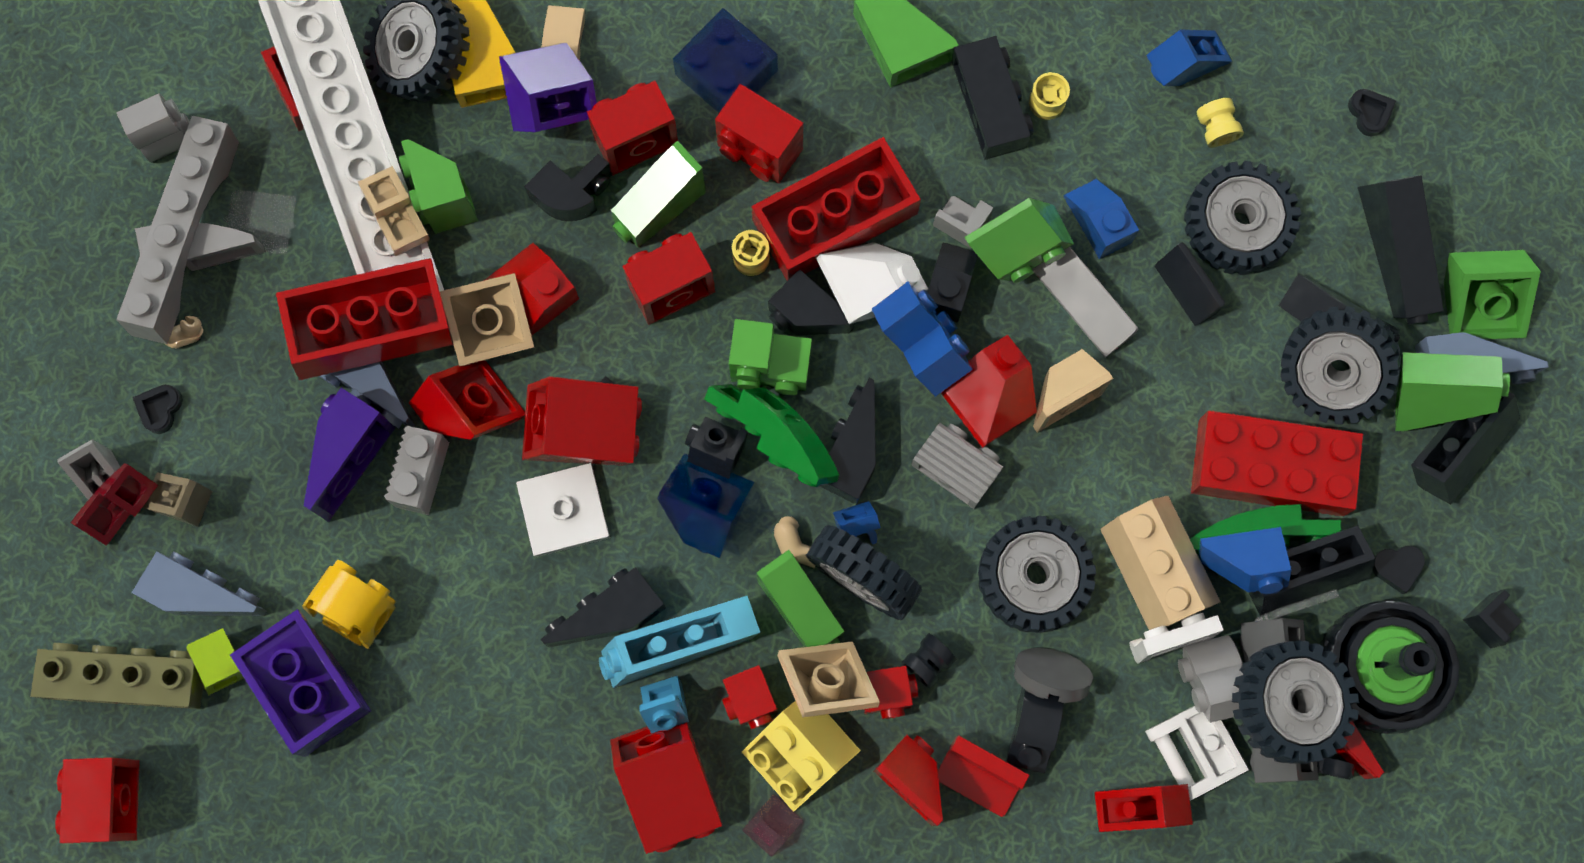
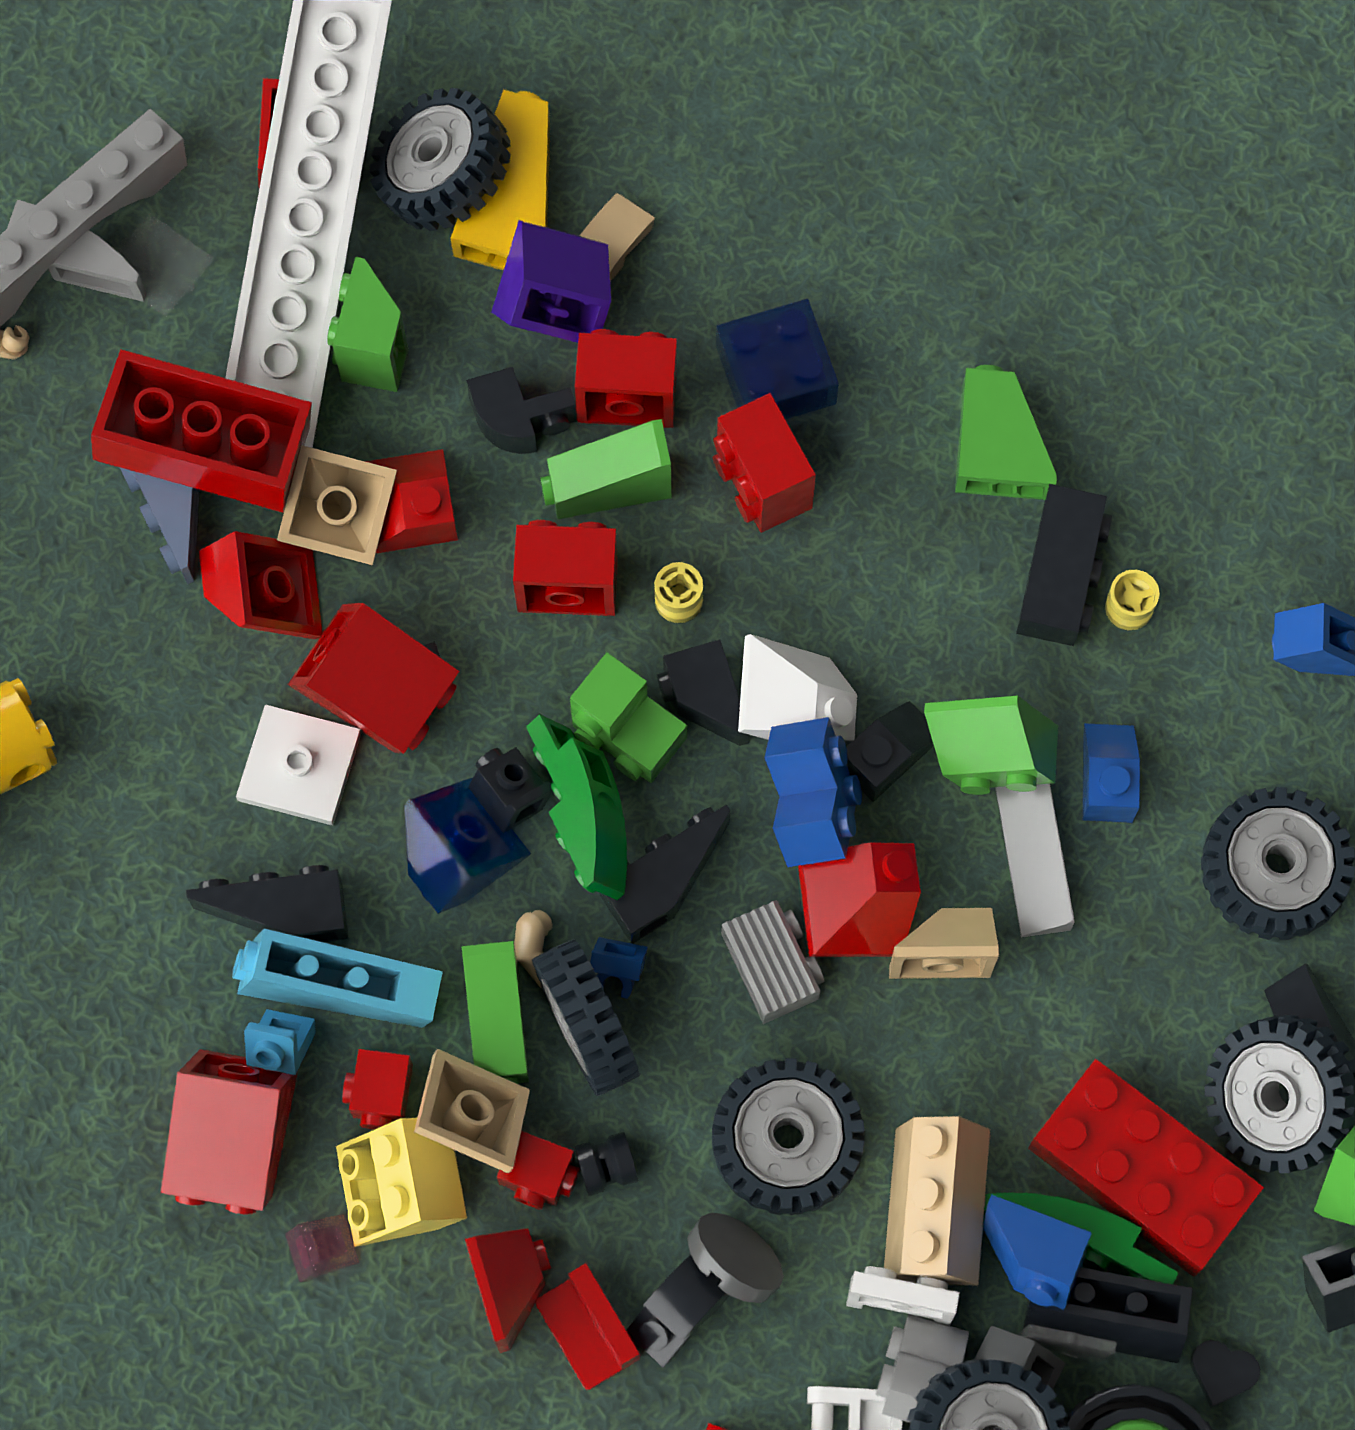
camera: 30 degrees right, 5 degrees down
(154, 126) = (102, 99): light grey brick -> none
(343, 448) = (94, 564): dark purple slope -> none
(393, 211) = (304, 330): tan slope -> none
(417, 470) = (164, 630): light grey brick -> none
(836, 208) = (805, 593): red brick -> none
(961, 219) = (945, 681): light grey panel -> none
(1189, 284) = (1168, 906): black slope -> none
(1219, 122) = (1318, 738): light yellow wheel -> none

